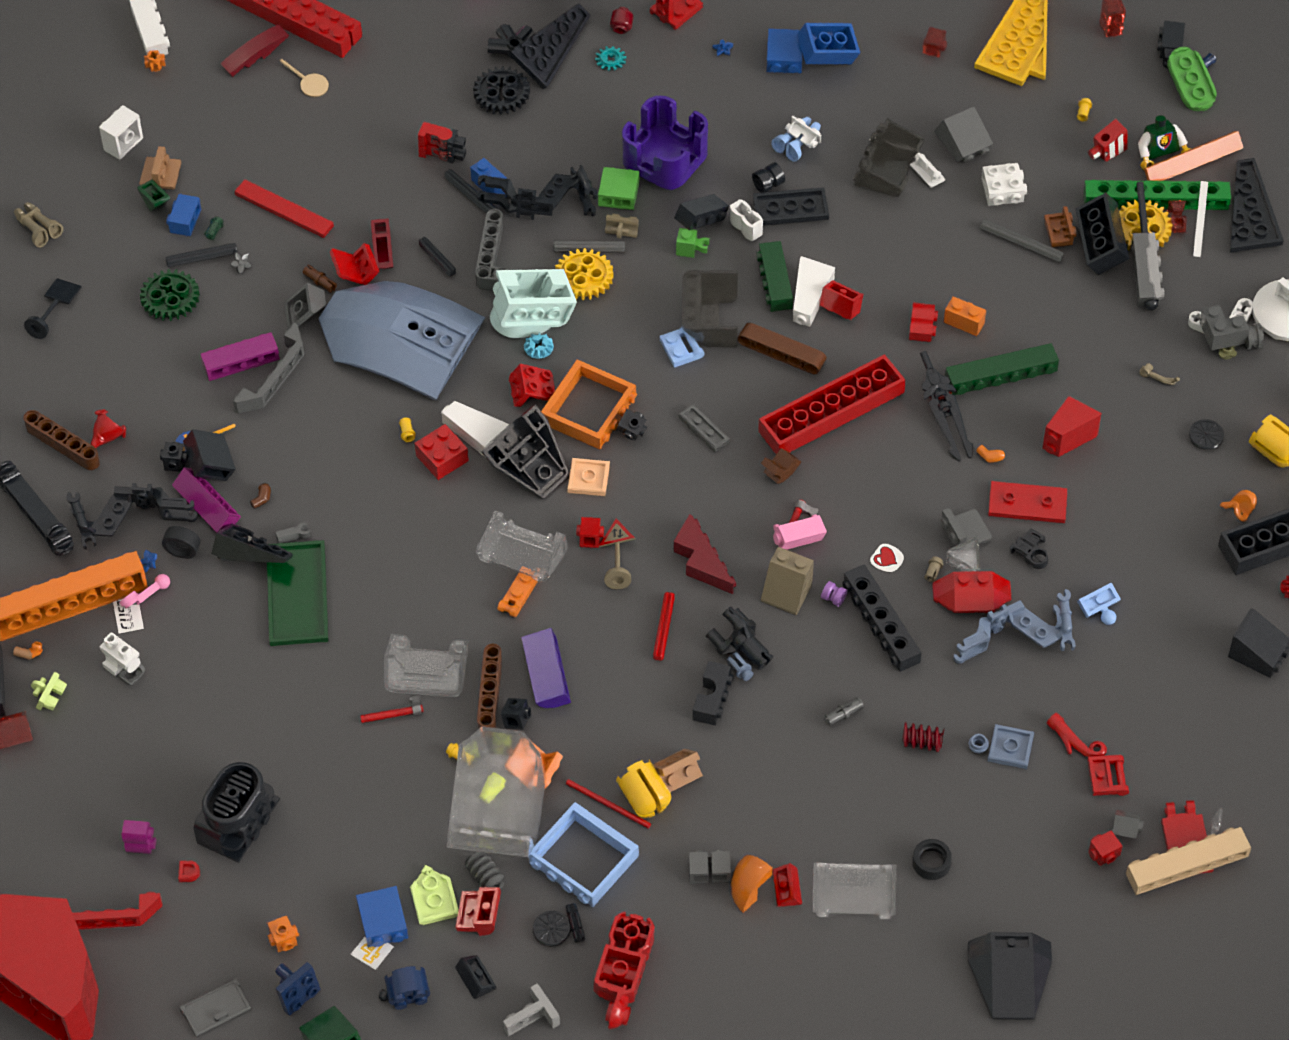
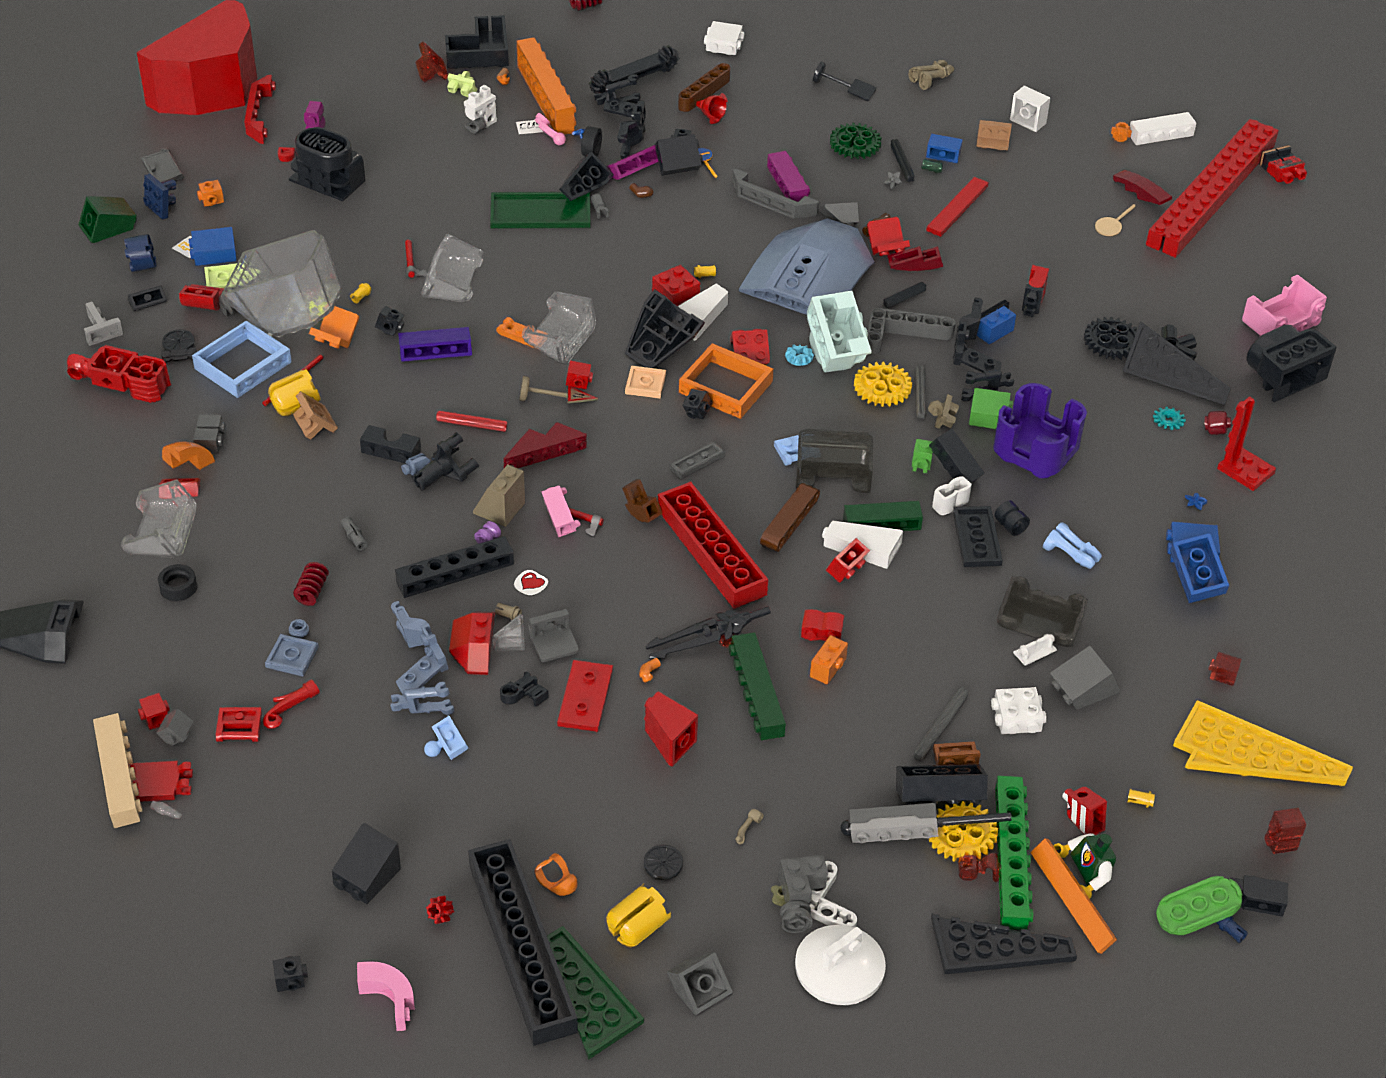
camera: 90 degrees right, 10 degrees down
(153, 195) = (961, 128): dark green slope -> none
(489, 681) = (424, 309): reddish brown beam -> none
(799, 127) = (1075, 536): white hinge -> none
(1200, 219) = (975, 887): white sticker -> none

